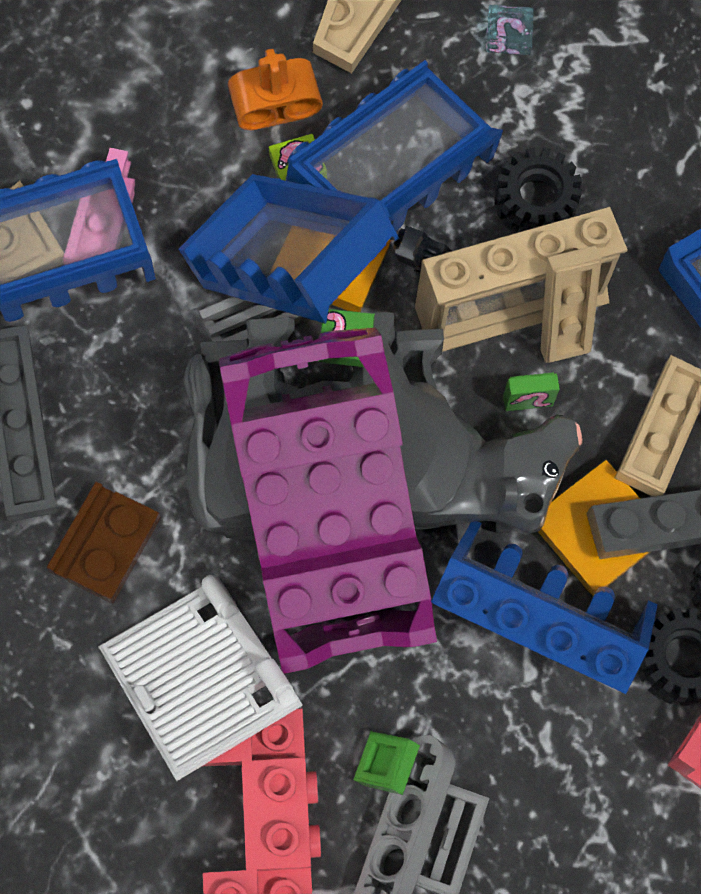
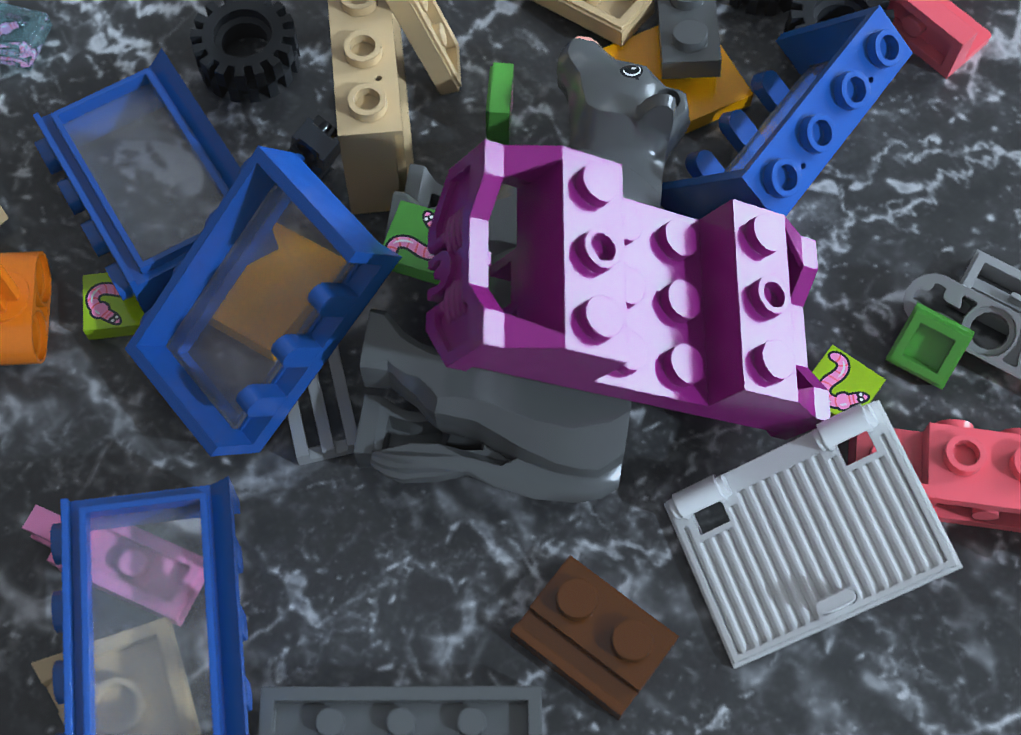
camera: 75 degrees left, 5 degrees down
(337, 698) = (846, 380): none -> tile

